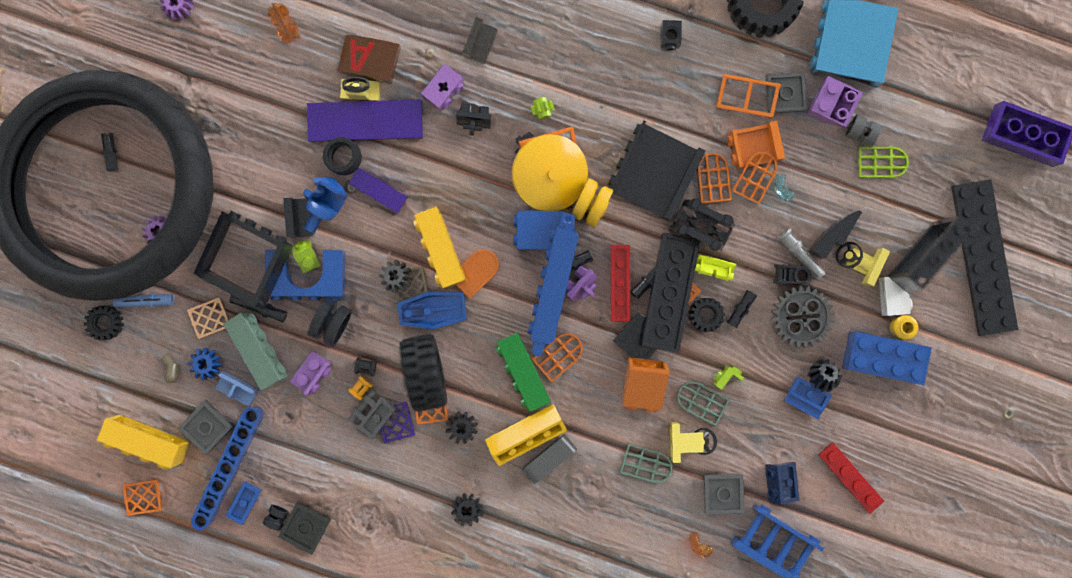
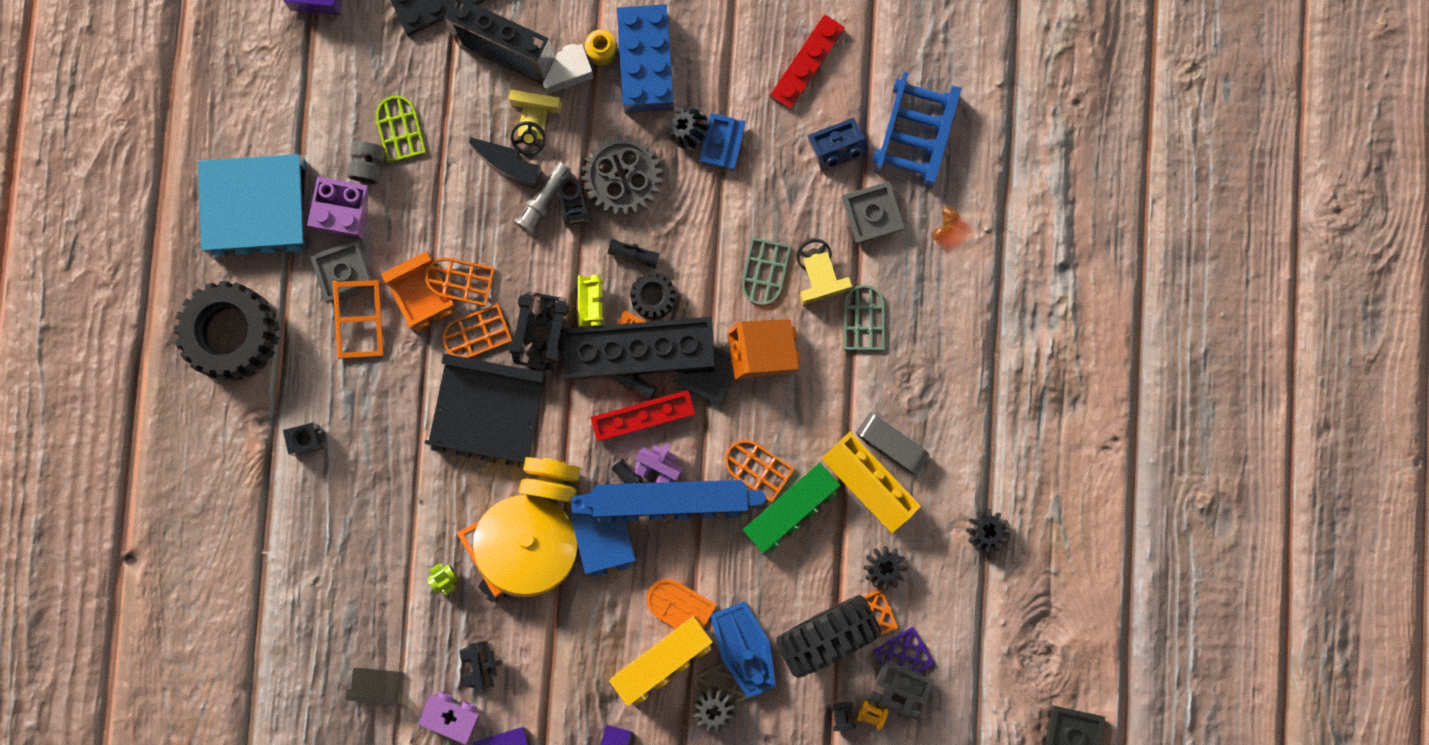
camera: 105 degrees left, 5 degrees down
(723, 377) = (726, 253): lime bracket -> none
(781, 190) = (467, 245): clear light blue arm -> none

